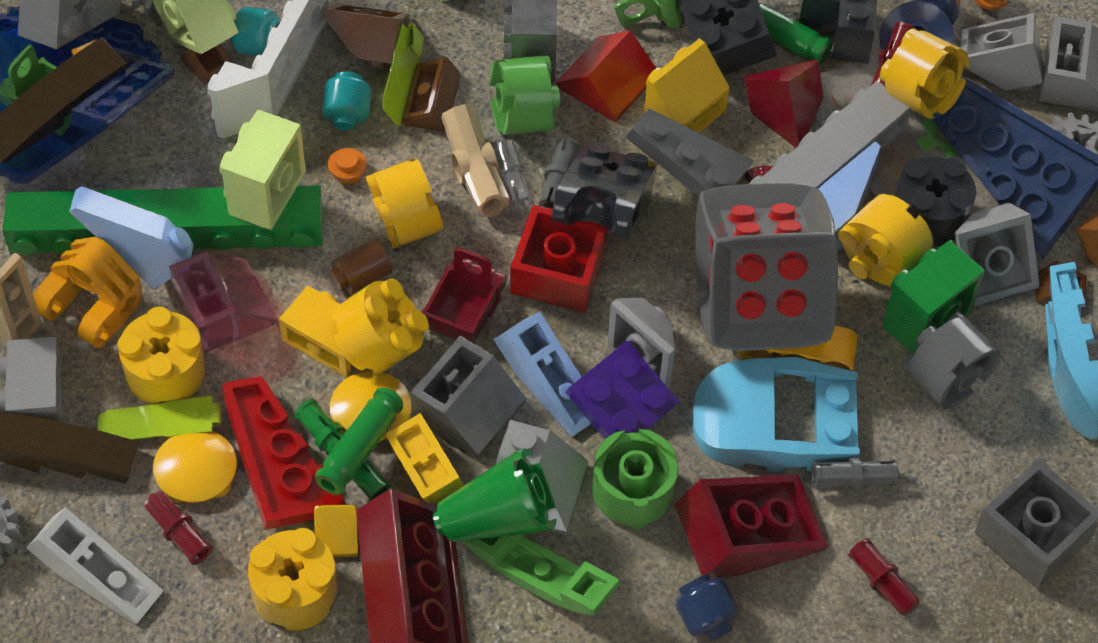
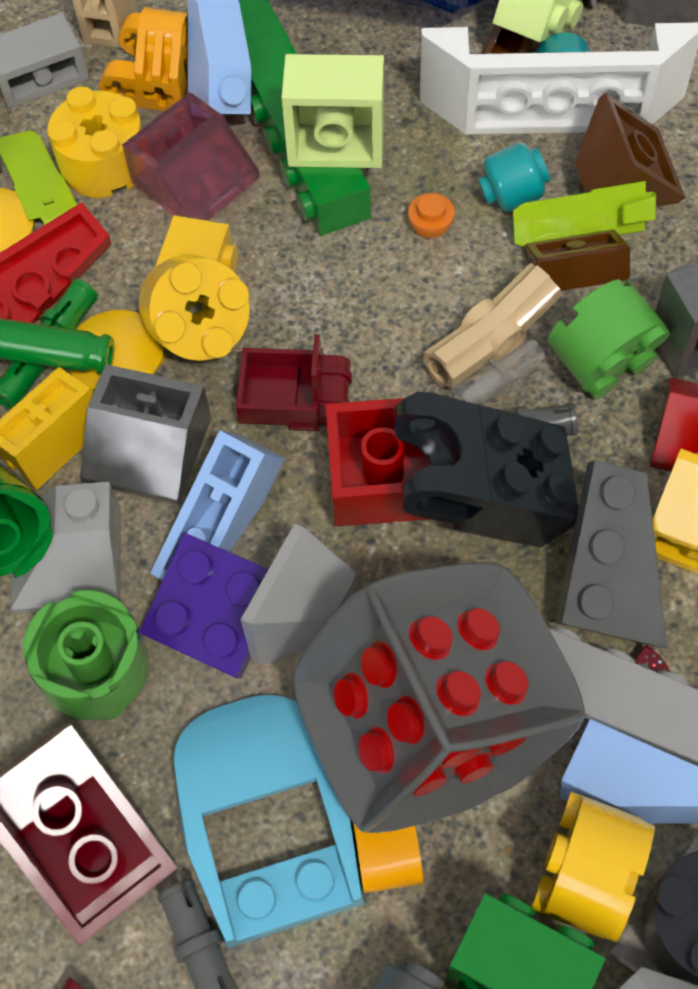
camera: 75 degrees right, 5 degrees up
(360, 267) = (290, 272): reddish brown brick -> none
(404, 203) = (387, 275): yellow brick -> none

